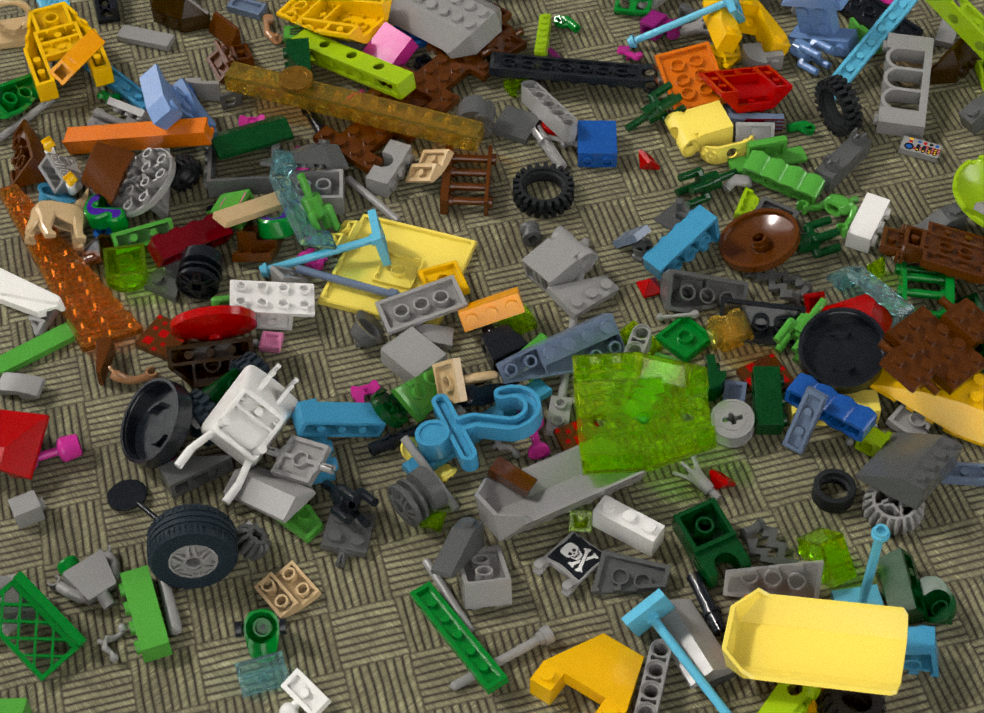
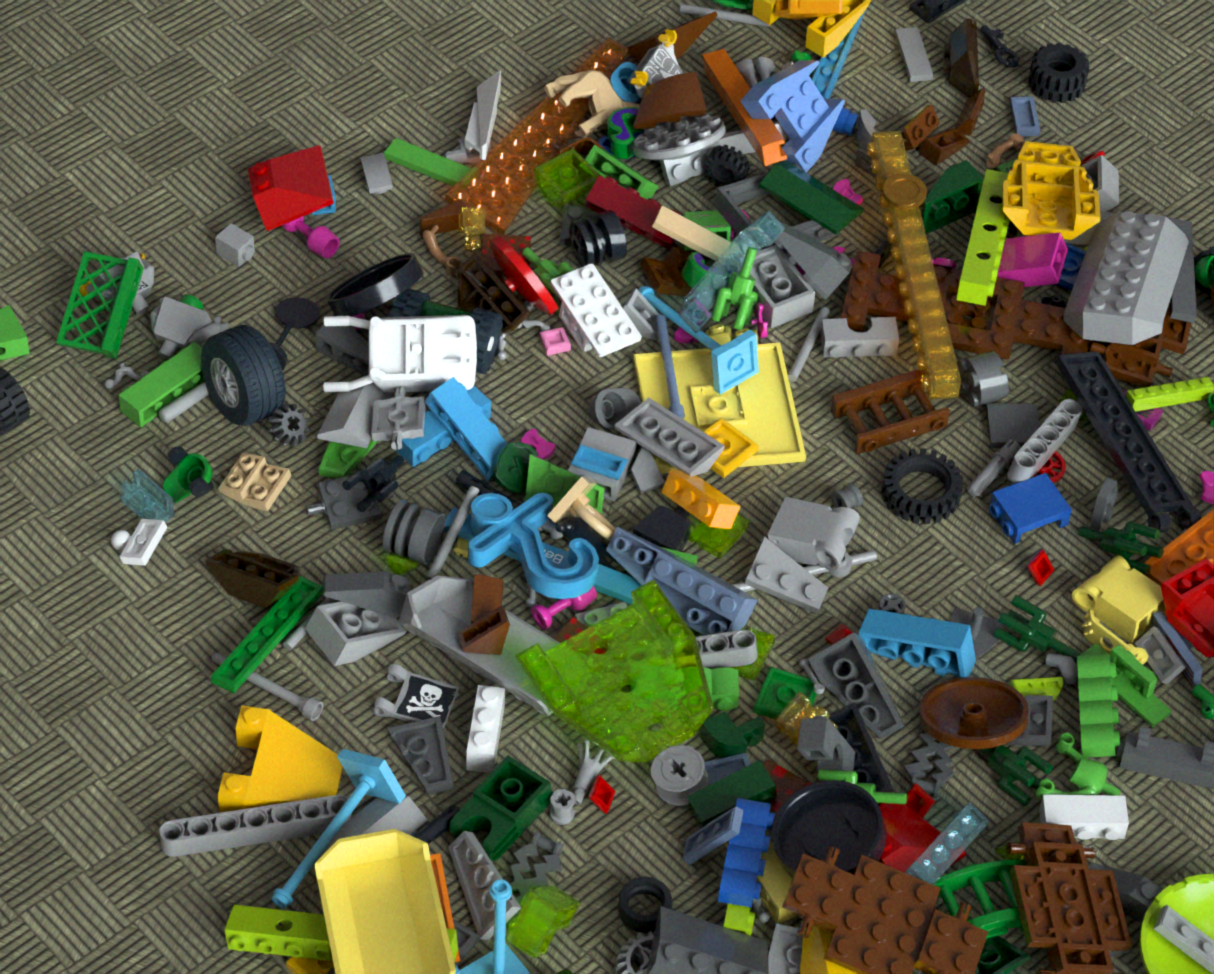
camera: 60 degrees right, 0 degrees up
(126, 343) = (473, 224): none -> clear yellow plate
(347, 215) = (762, 326): none -> dark pink piece
(399, 619) = (253, 575): none -> dark brown wedge
(422, 353) = (599, 462): none -> dark azure tile
(430, 166) = (873, 369): tan slope -> none
(545, 485) = (486, 634): none -> reddish brown slope
(580, 520) = (469, 686): clear neon green slope -> none
(618, 103) = (1103, 507): none -> dark grey wing
(631, 236) = (896, 588): sand blue tile -> none
(729, 503) = (562, 806): none -> light grey bush
(766, 322) = (824, 743): none -> dark grey arch

